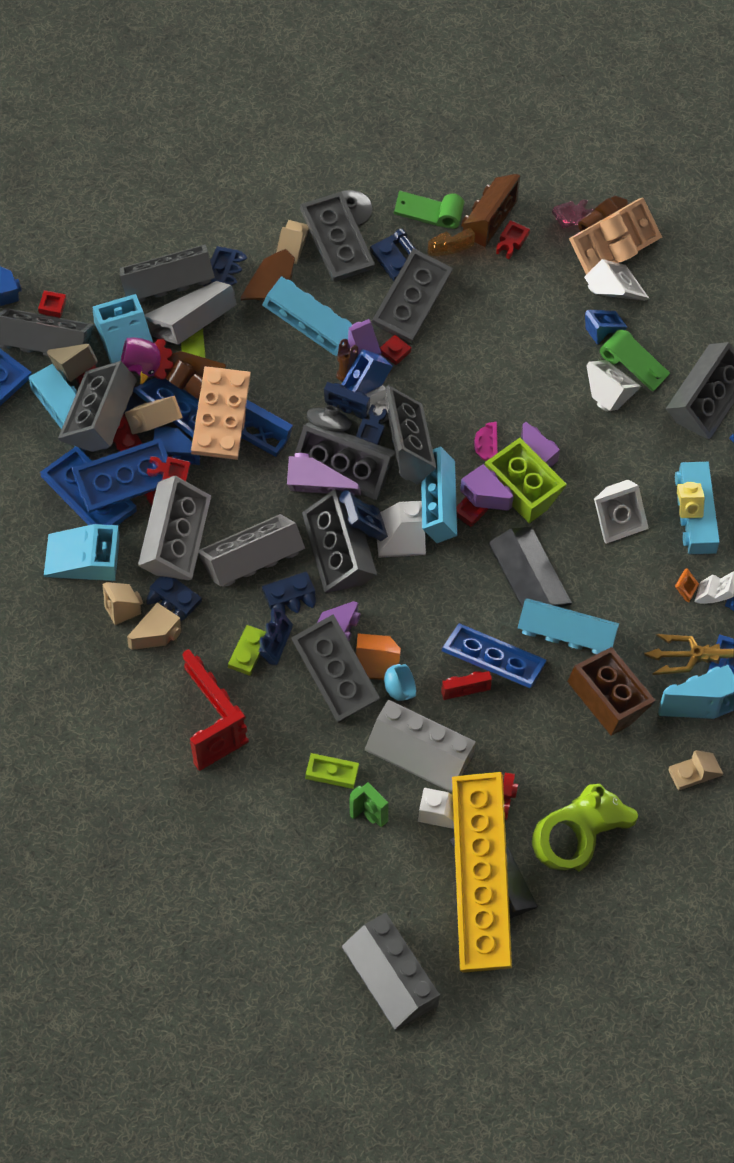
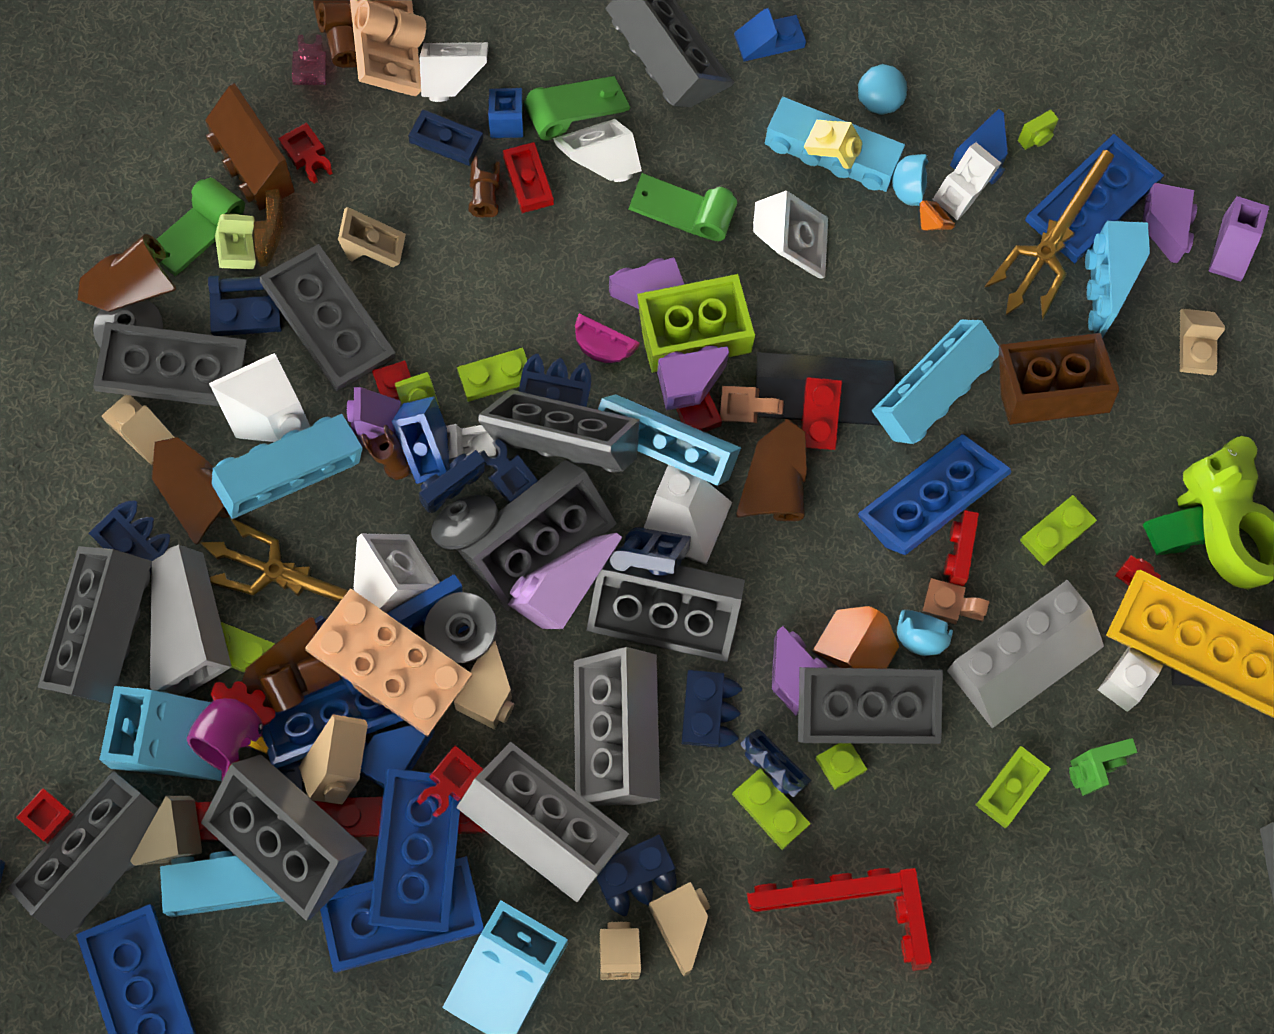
camera: 65 degrees left, 10 degrees up
(239, 474) = (487, 692): none -> tan slope
(248, 350) = (274, 570): none -> pearl gold piece
(262, 441) = (454, 613): none -> dark grey dish
(278, 393) = (390, 570): none -> white slope
(295, 676) = (841, 764): none -> lime plate
(340, 285) = (260, 401): none -> white slope
(376, 189) = (126, 277): none -> reddish brown panel
(397, 360) = (415, 388): none -> lime plate
(430, 229) = (235, 241): none -> yellowish green bracket
(430, 693) = (948, 602): none -> nougat plate
(431, 397) = (492, 374): none -> lime plate
(440, 426) = (555, 383): none -> dark blue plate
(454, 566) = (777, 475): none -> reddish brown panel
(474, 291) = (369, 237): none -> tan slope
(490, 530) = (744, 404): none -> nougat plate
(508, 573) = (821, 412): none -> red plate
(513, 737) = (1058, 530): none -> lime plate
(545, 338) = (484, 190): none -> reddish brown piece
(549, 799) = (1176, 531): none -> green slope
(567, 303) = (445, 137): none -> dark blue plate
(568, 356) = (528, 177): none -> red plate
(602, 447) = (683, 209): none -> bright green door
(700, 559) = (910, 179): none -> medium azure hair

